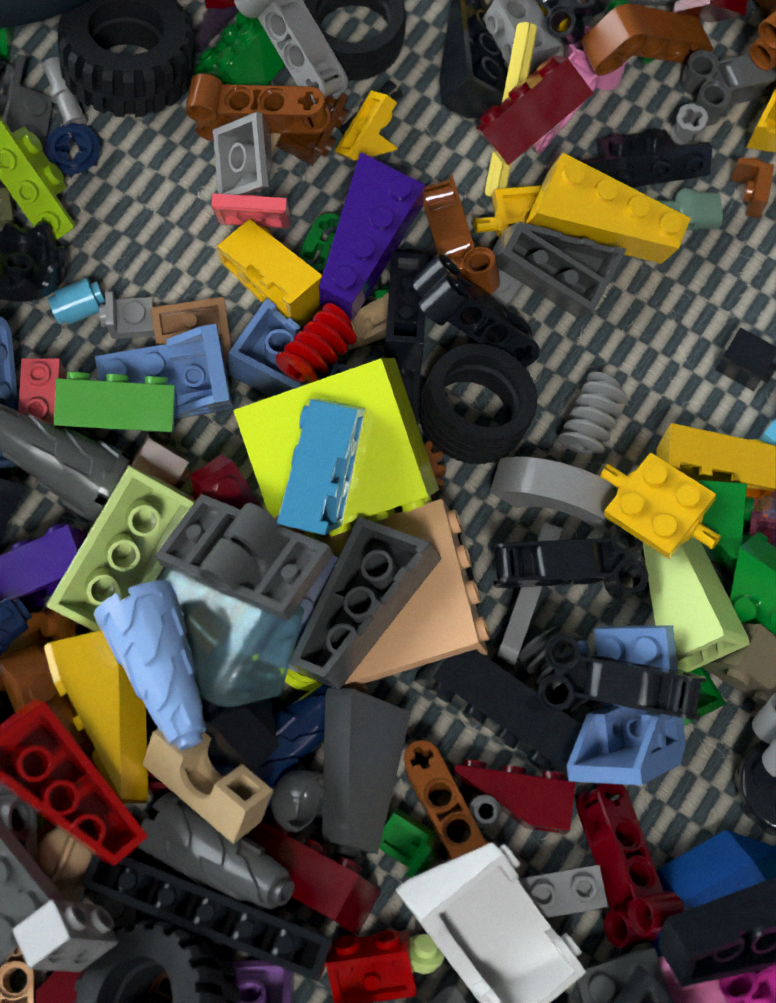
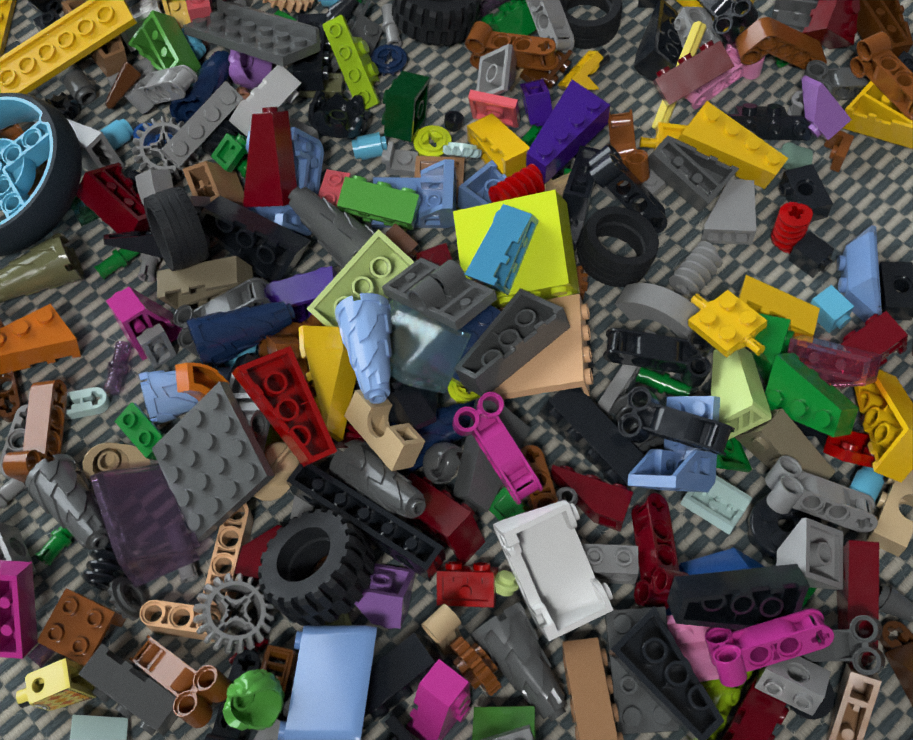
camera: 20 degrees right, 10 degrees down
(65, 936) = (270, 501): light grey brick -> none
(118, 231) = (405, 106): none -> dark green brick
(174, 262) = (438, 135): none -> neon yellow gear
(193, 236) = (453, 121): none -> black hinge
(217, 286) = (462, 150): none -> light aqua gear
(312, 189) = (536, 101): none -> dark purple brick
(377, 766) = (499, 447): none -> dark pink piece
(581, 600) = (662, 383): none -> green pin
(629, 317) = (733, 215): none -> light grey slope
(701, 773) = (720, 506): none -> light aqua bracket
(714, 325) = (791, 225): none -> red piece
(721, 247) = (806, 187): none -> black brick
(725, 135) = (822, 109): none -> medium lavender slope

